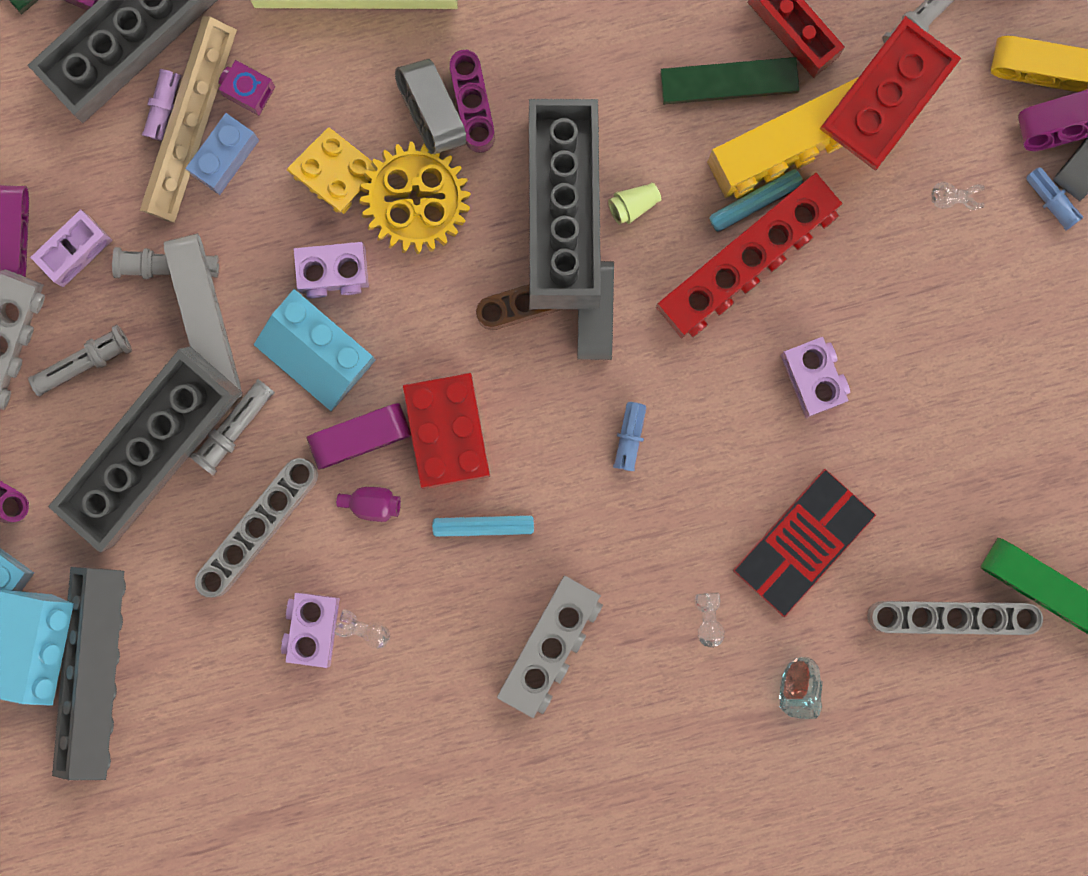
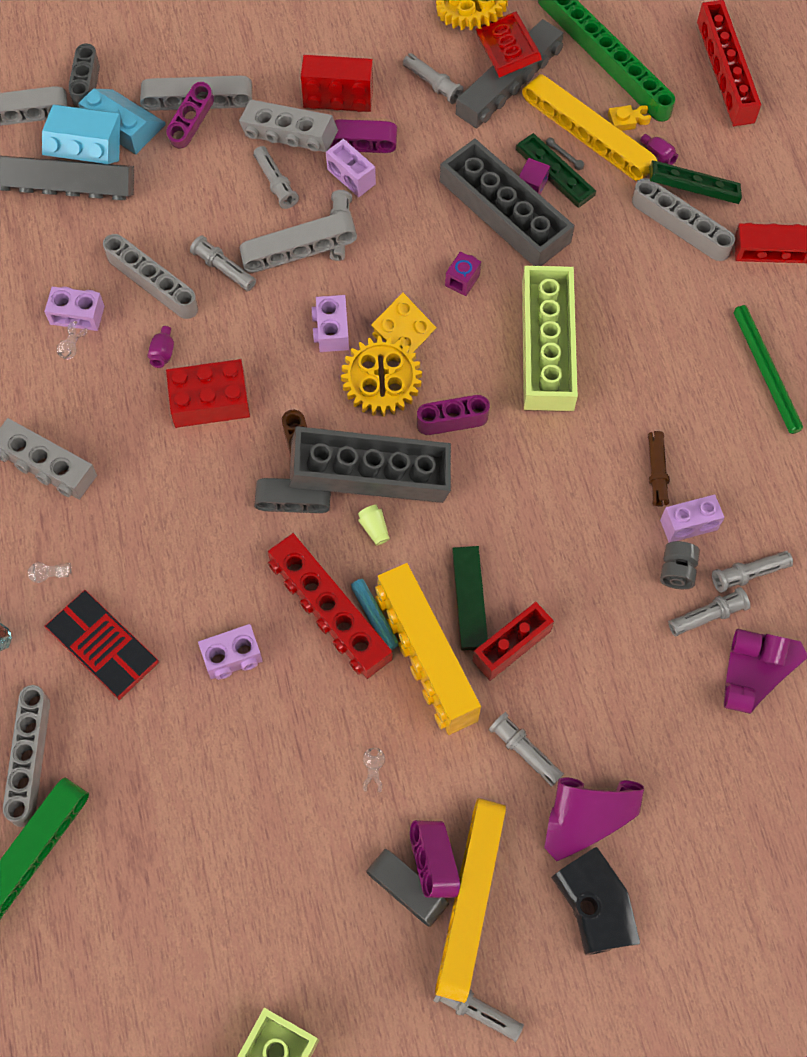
camera: 90 degrees right, 20 degrees down
(145, 449) = (209, 203): dark grey brick -> none
(161, 104) = (451, 224): lavender pin -> none
(188, 119) = (440, 238): tan plate -> none
(222, 153) = (415, 257): medium blue brick -> none
(313, 350) = (276, 314): medium azure slope -> none
(358, 436) = (209, 335): magenta beam -> none
(430, 106) = (448, 384): beam -> none
(483, 526) = (138, 420): medium azure axle -> none
(630, 436) = (194, 518): medium blue axle -> none
(890, 93) = (450, 696): red tile -> none
(1054, 199) = (369, 849): medium blue axle -> none

